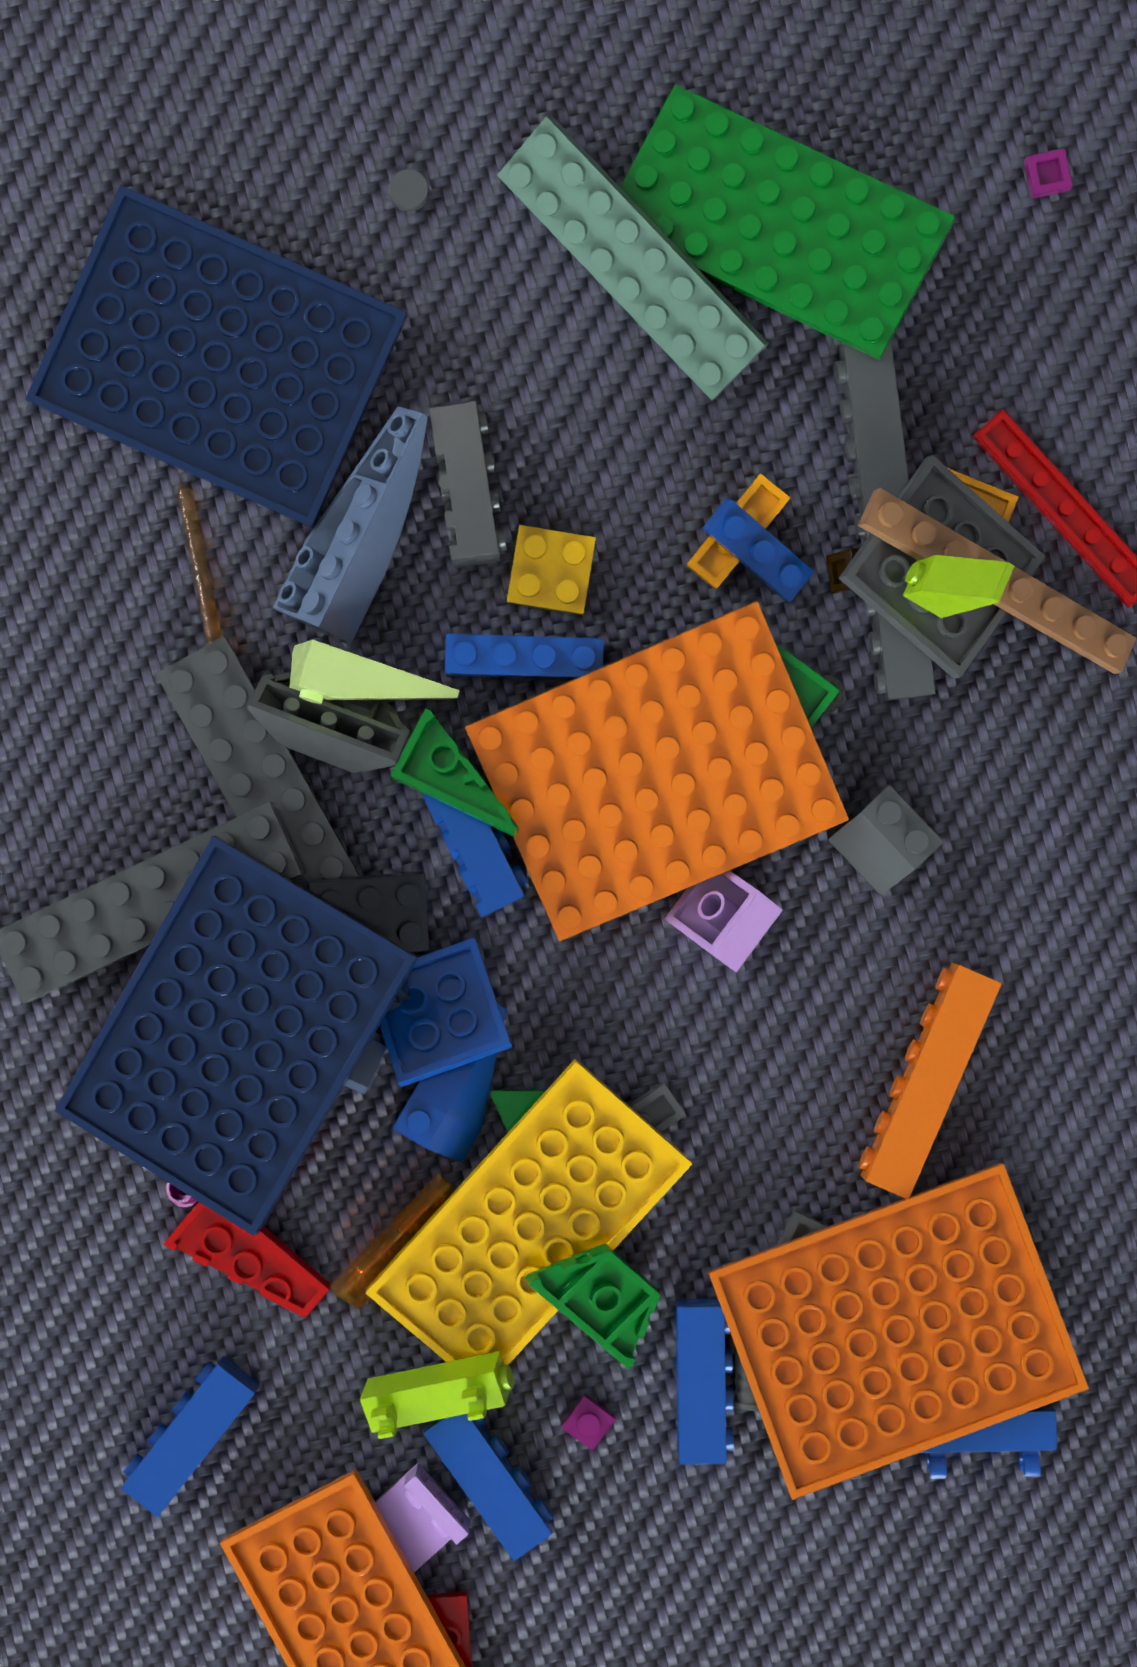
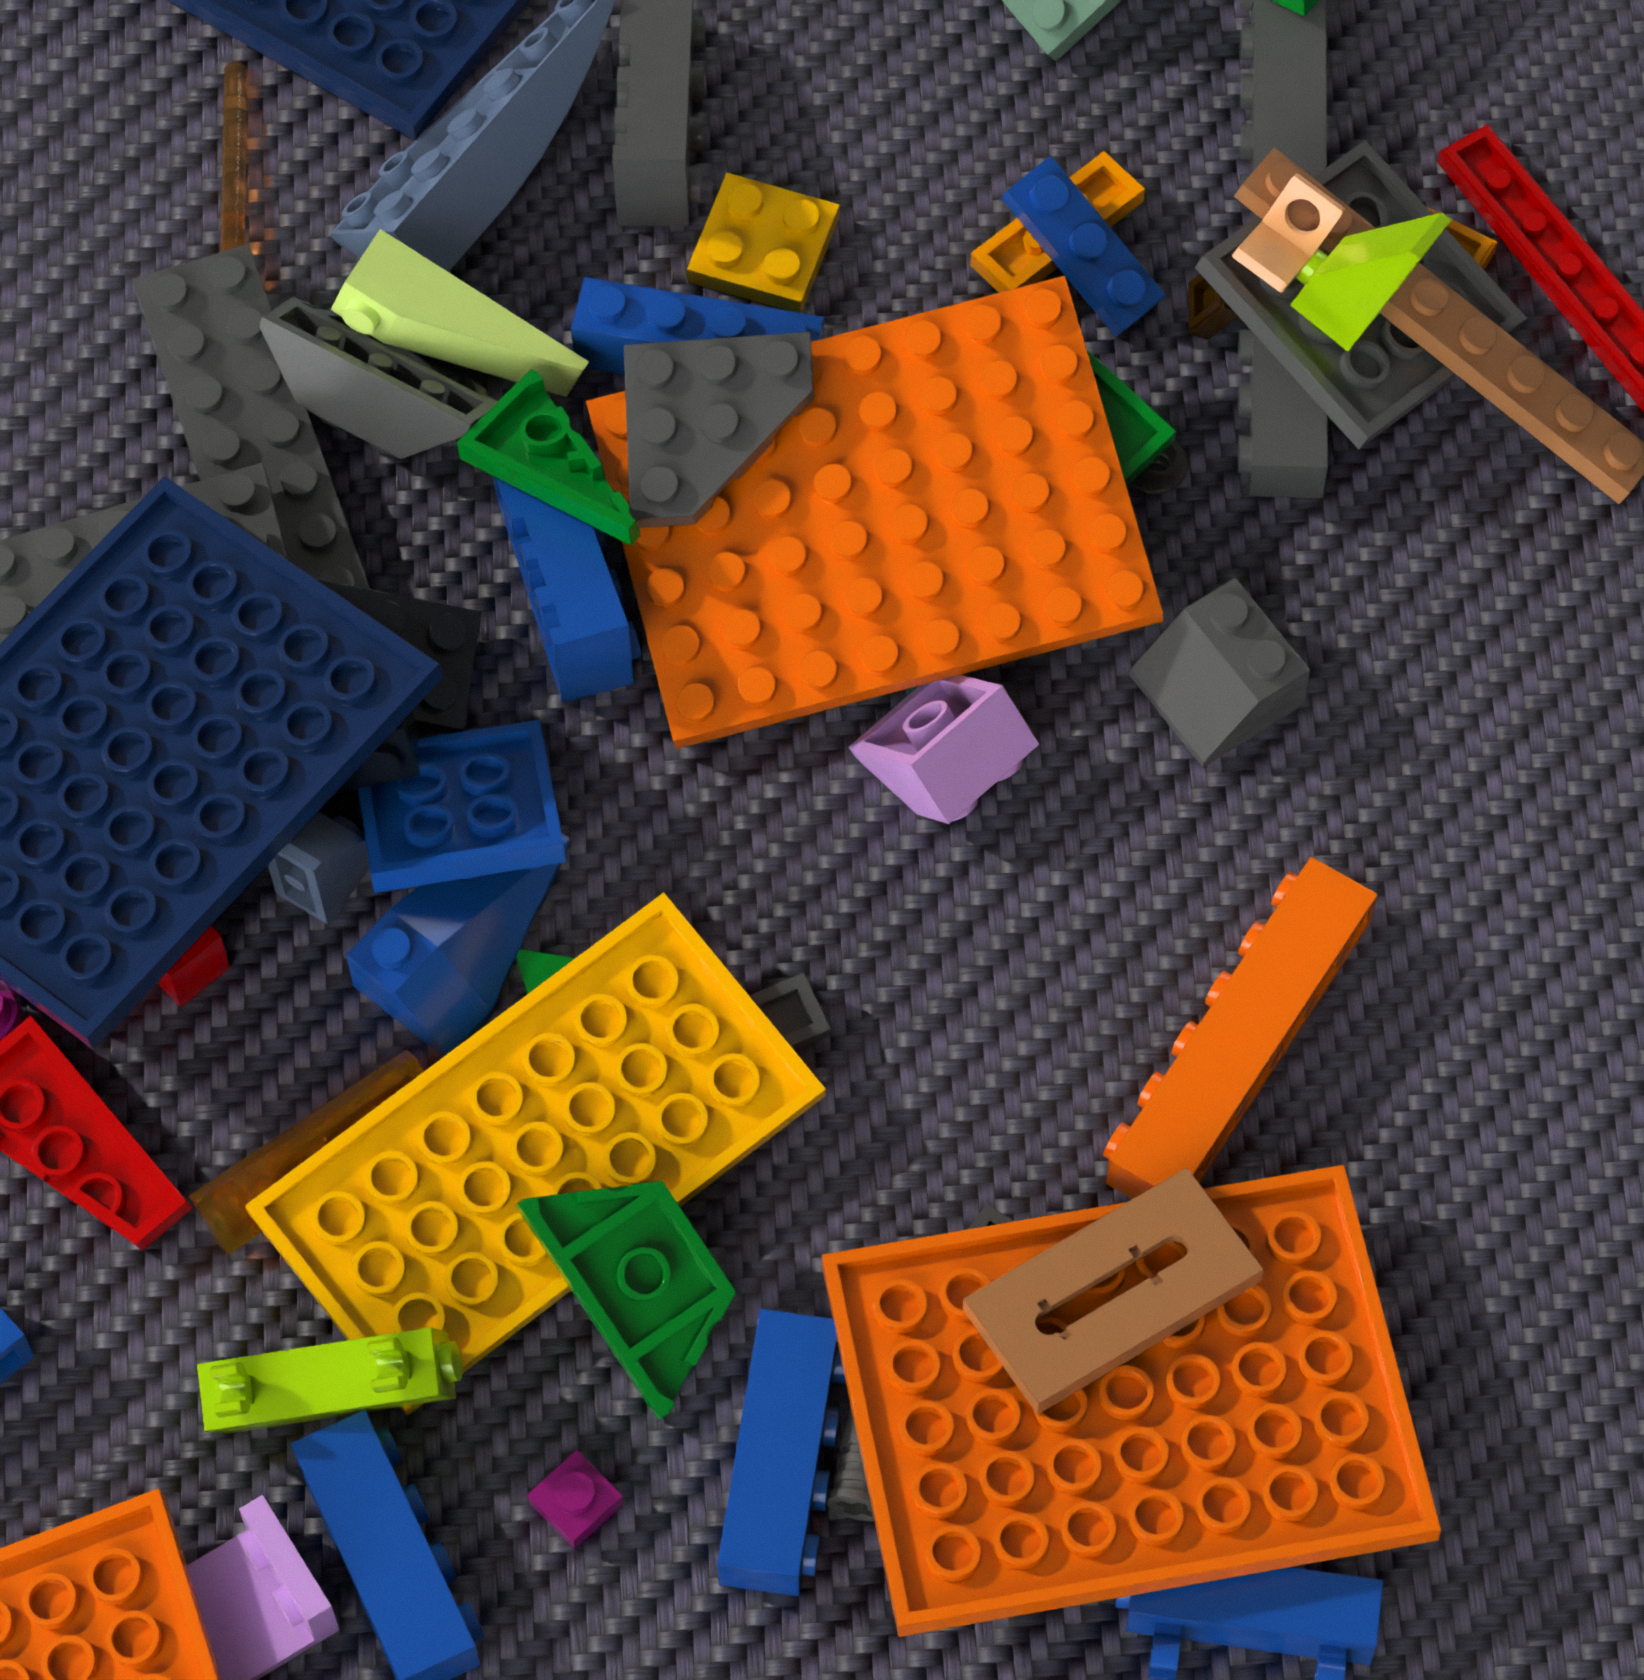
camera: 10 degrees right, 25 degrees down
(544, 735) = (706, 416): none -> dark grey plate
(893, 561) = (1279, 249): none -> light nougat bracket
(904, 1220) = (1061, 1364): none -> medium nougat piece

